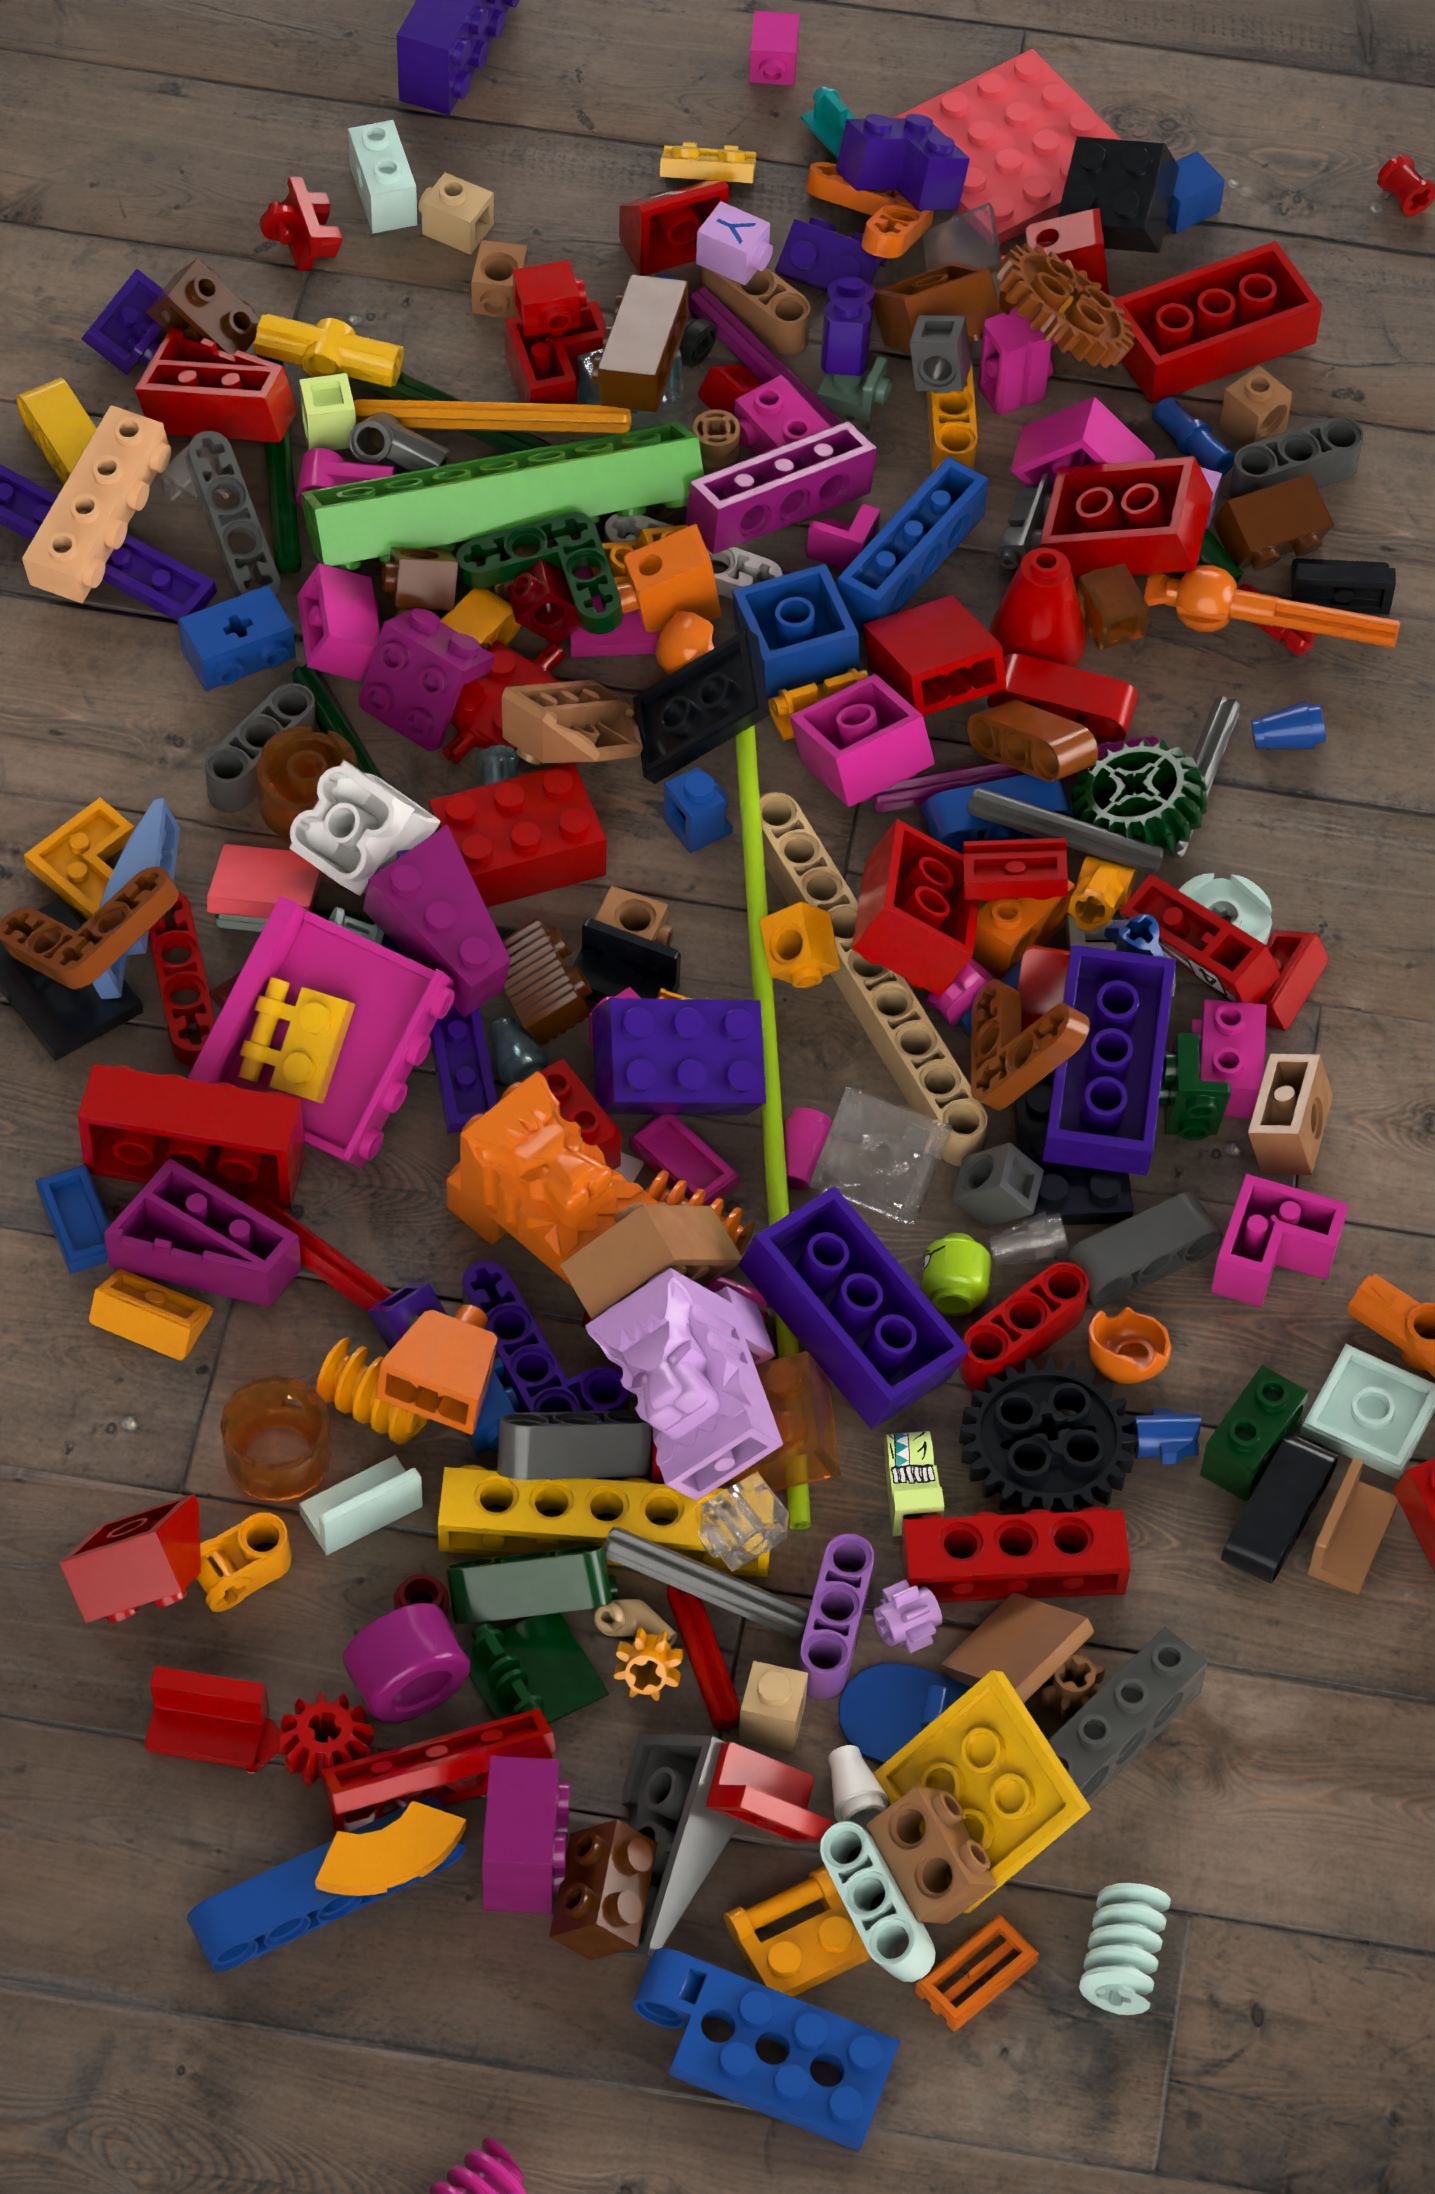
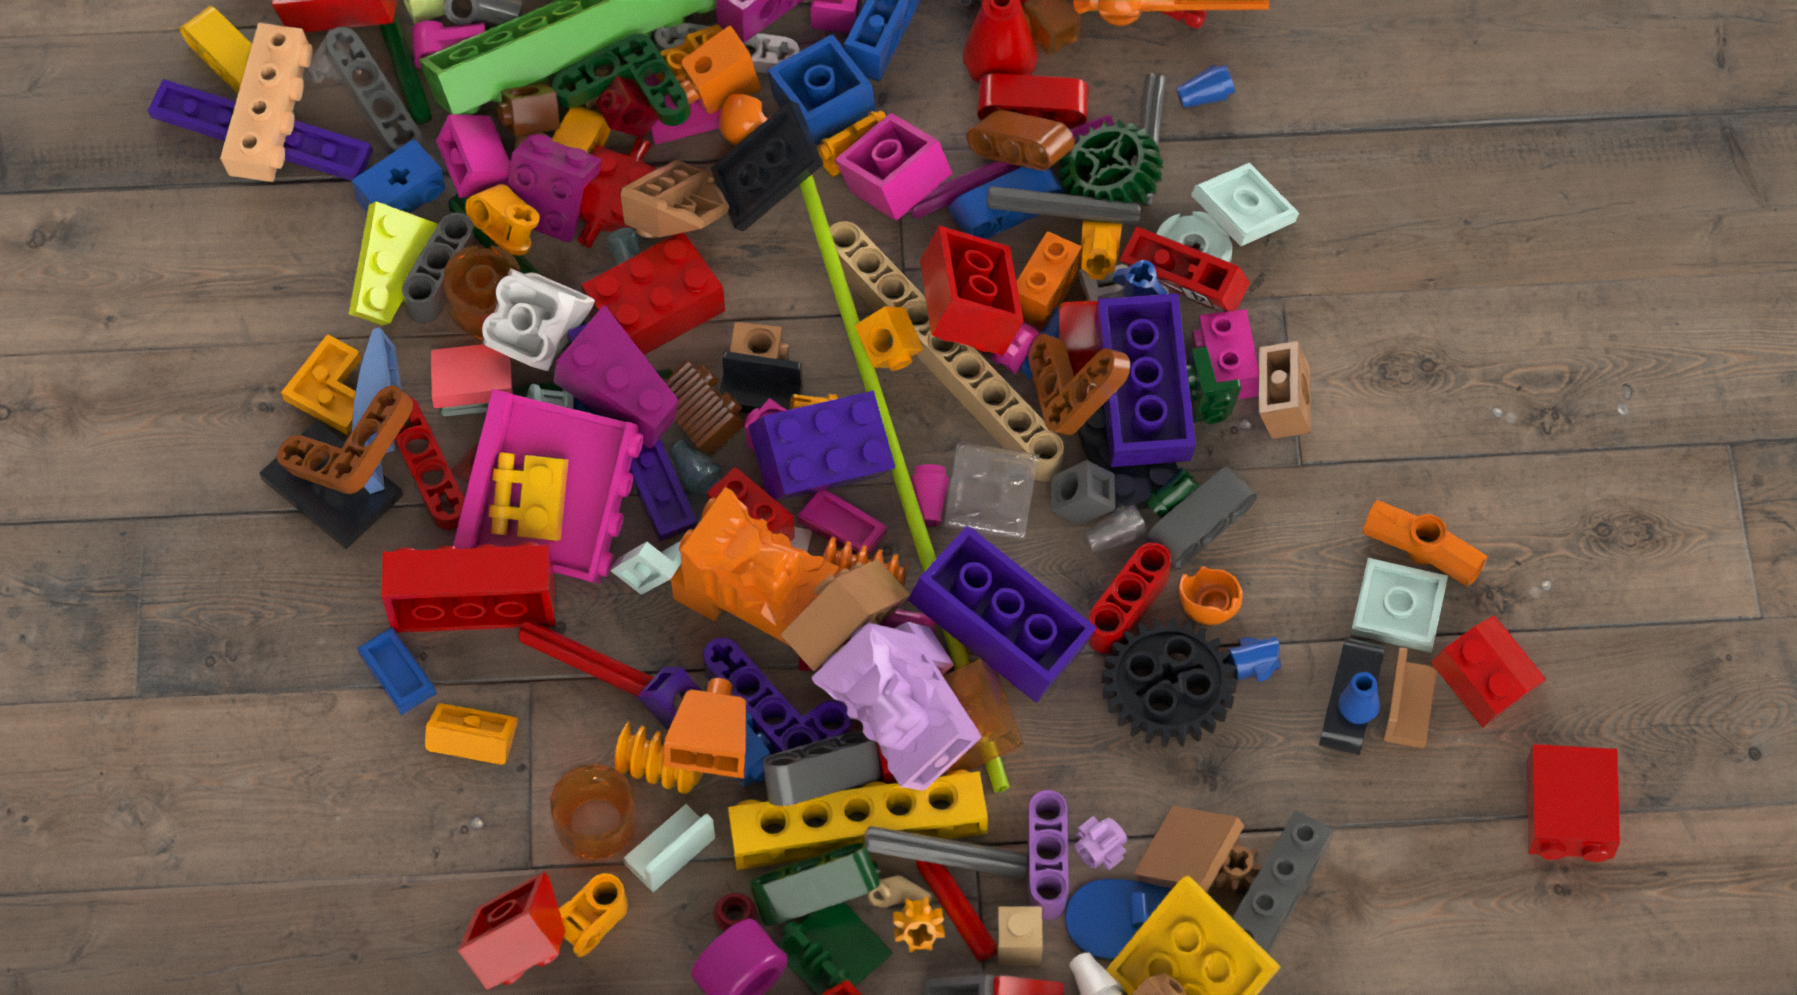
camera: 10 degrees left, 5 degrees up
(198, 716) = (386, 257): none -> neon yellow wing
(203, 1239) = (498, 668): magenta wedge -> none
(354, 702) = (502, 216): none -> light orange piece
(418, 1156) = (647, 567): none -> light aqua panel
(701, 803) = (784, 240): blue brick -> none
(743, 1522) = (964, 801): clear brick -> none
(911, 1477) = (1077, 738): yellowish green leg -> none
(935, 655) = (931, 88): red brick -> none
(955, 1274) = (1068, 568): lime head -> none
(1015, 869) = (1037, 245): red plate -> none
(1041, 1572) = (1193, 784): red brick -> none
(1112, 1207) = (1172, 492): none -> dark green pin
(1253, 1432) = (1319, 642): dark green brick -> none
(1274, 1228) = (1298, 481): dark pink brick -> none
(1284, 1507) = (1360, 699): none -> blue cone
(1300, 962) = (1259, 267): red slope -> none
(1301, 879) = (1245, 204): none -> light aqua tile

